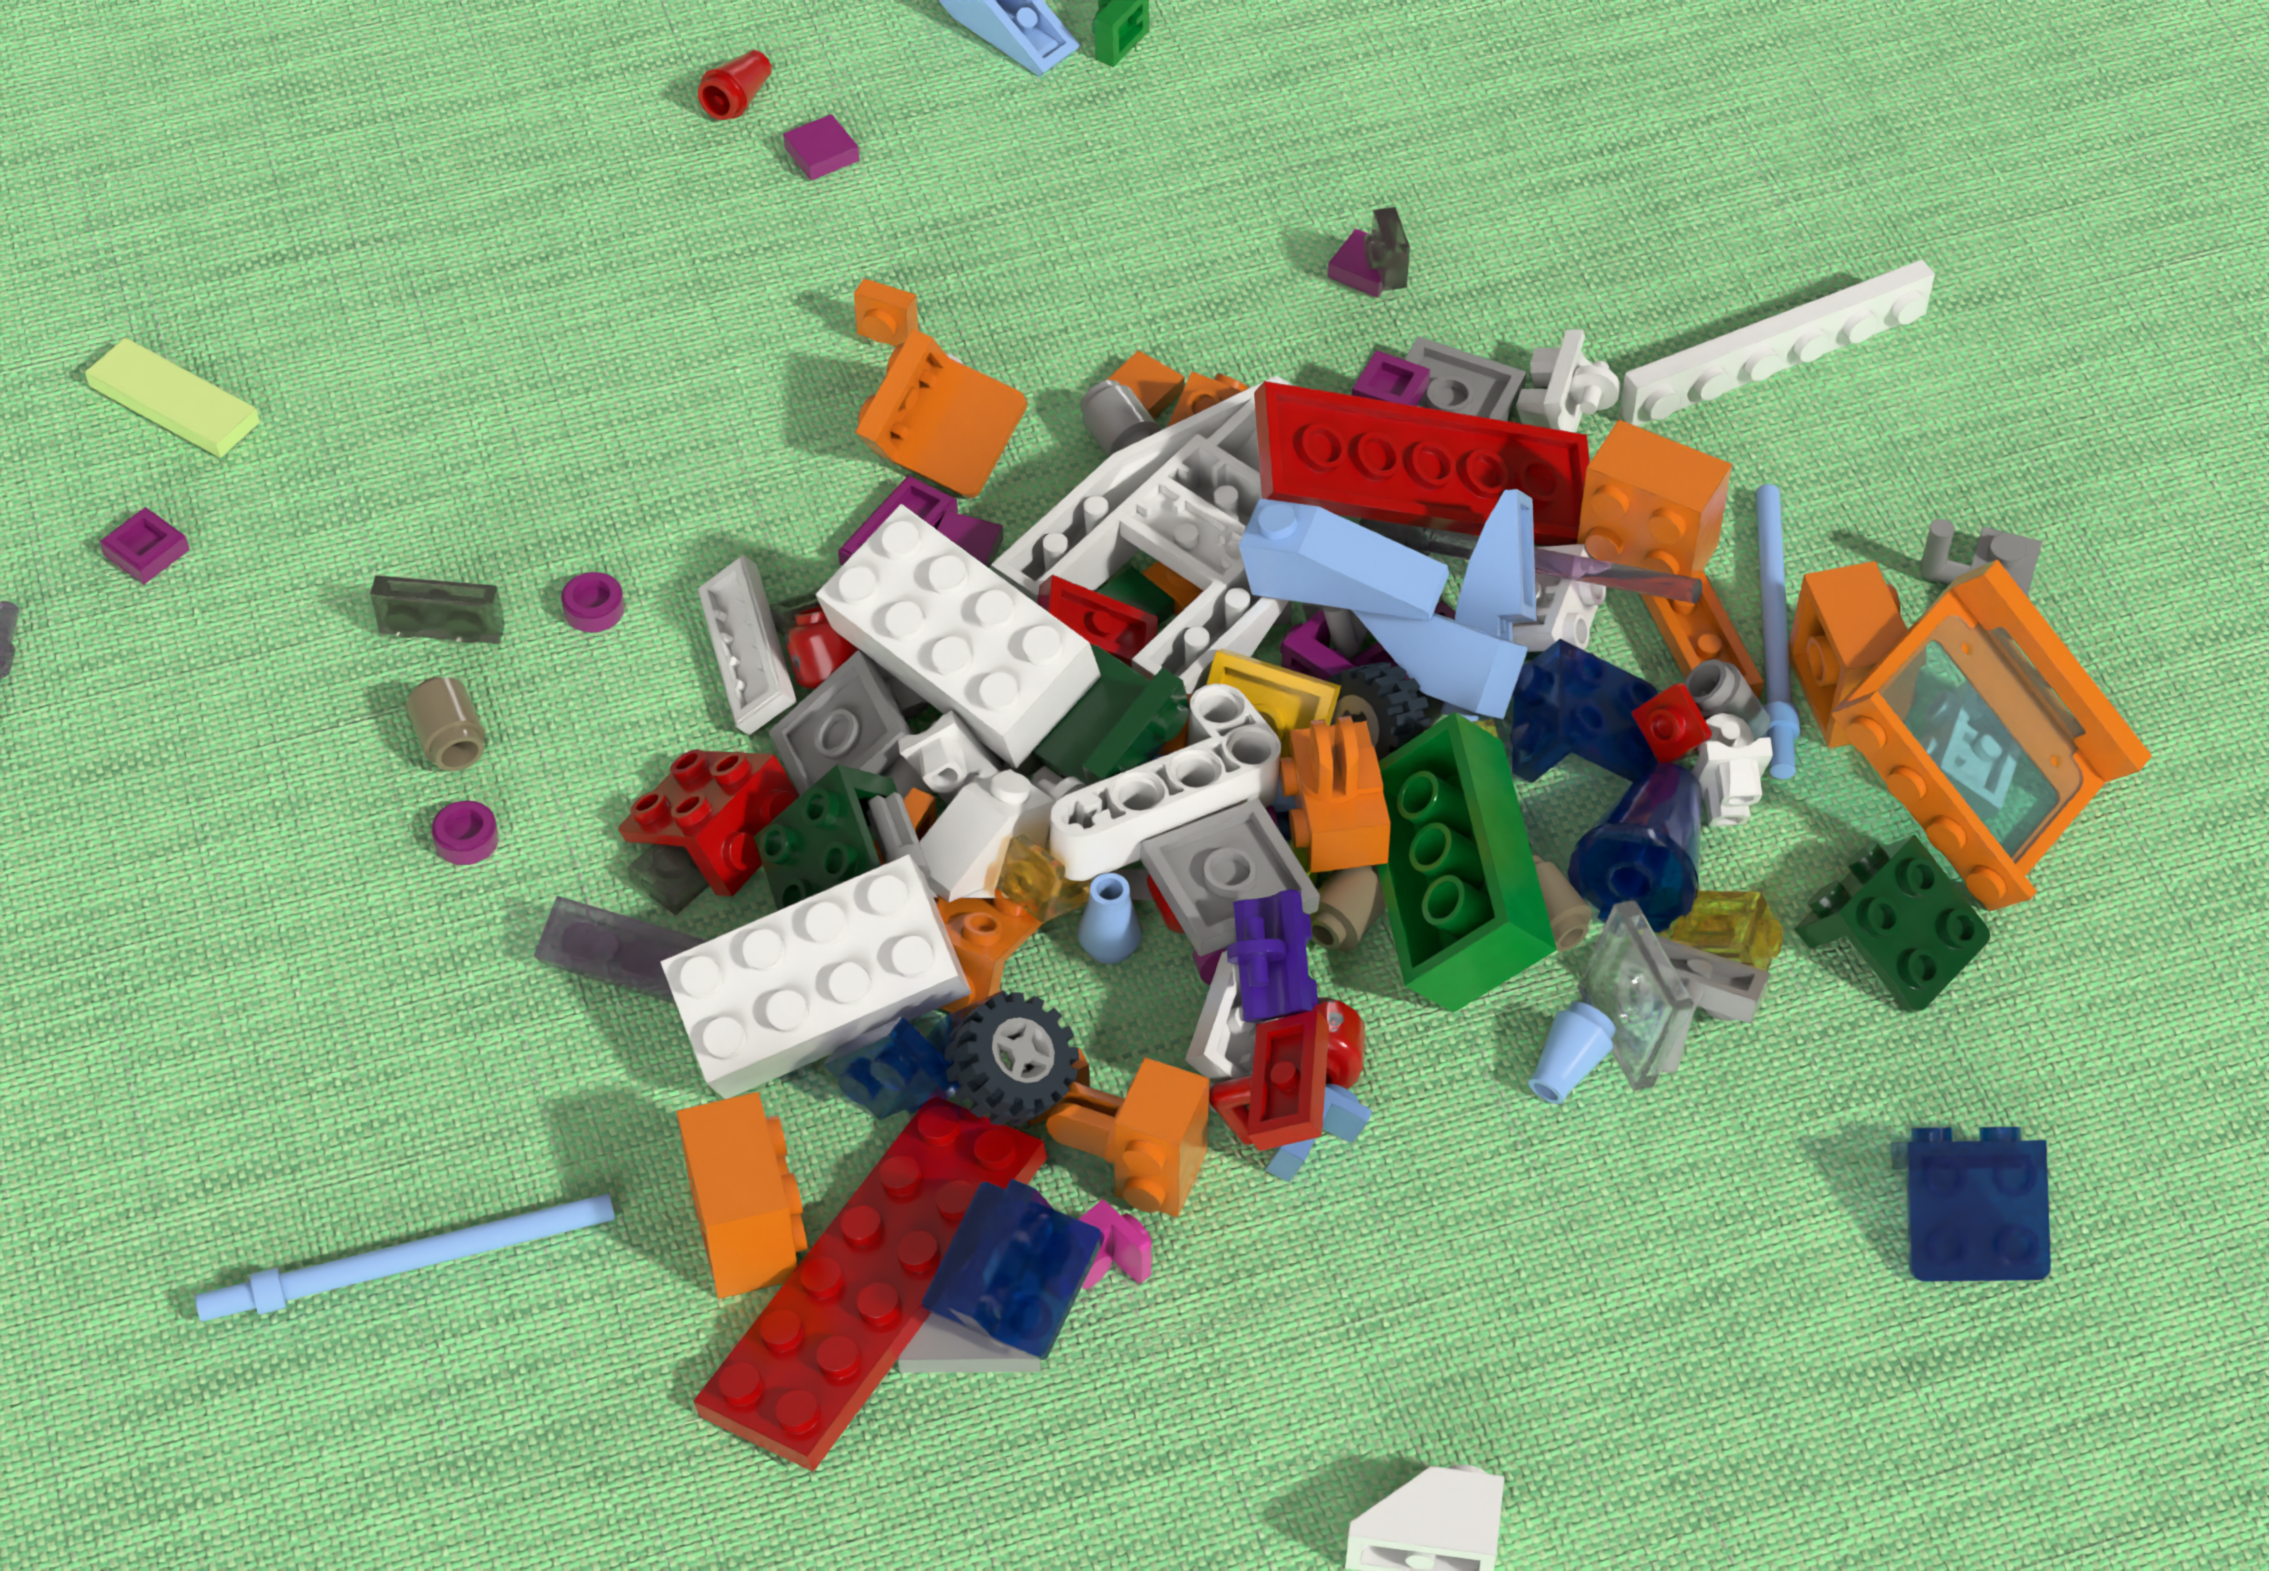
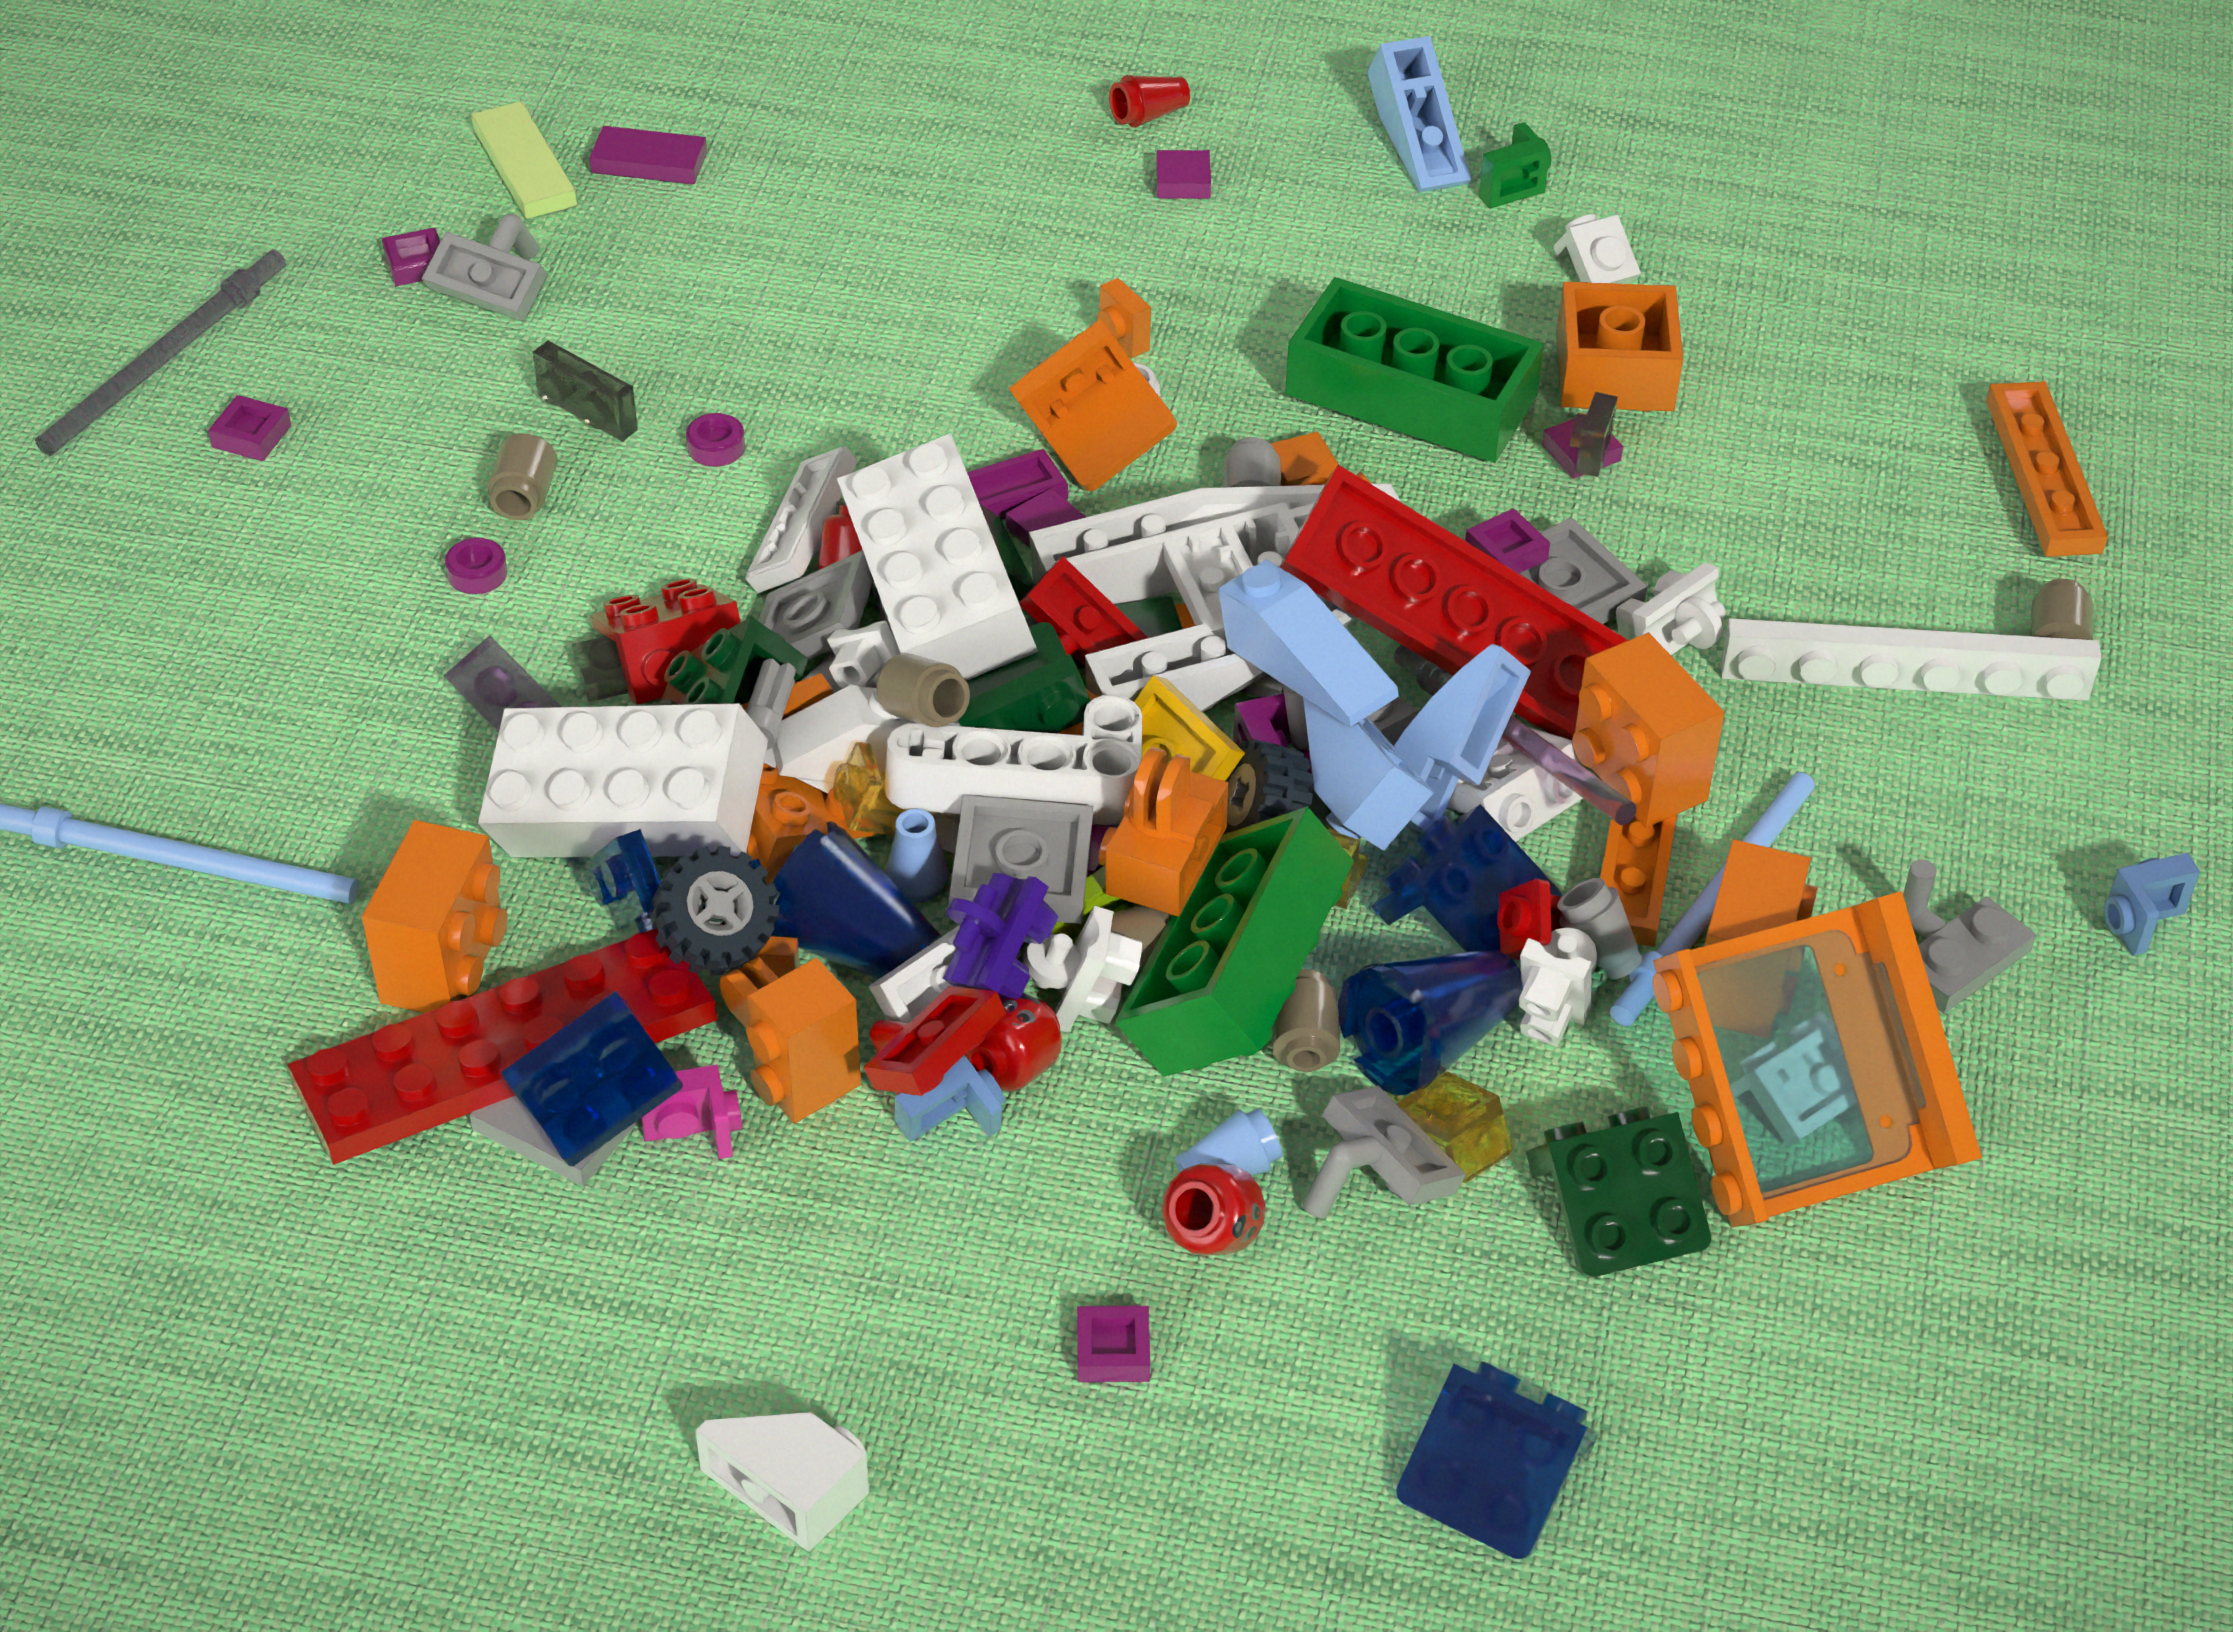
camera: 30 degrees right, 5 degrees down
(123, 796) = (250, 428): none -> magenta tile
(242, 532) = (489, 273): none -> light grey plate
(294, 340) = (648, 155): none -> magenta tile
(1054, 762) = (922, 690): none -> dark tan brick
(1109, 995) = (847, 906): none -> clear blue cone
(1187, 254) = (1414, 369): none -> green brick
(1250, 71) = (1599, 250): none -> white bracket
(1343, 156) = (1619, 344): none -> orange brick
(1345, 944) = (1087, 971): none -> white hips
(1600, 1270) = (1113, 1344): none -> magenta tile
(1606, 1110) = (1213, 1209): none -> red head
(1638, 992) = (1310, 1124): clear tile -> none
(1756, 119) = (2046, 469): none -> orange plate
(1866, 248) = (2062, 611): none -> dark tan brick
(2098, 472) = (2147, 894): none -> medium blue bracket

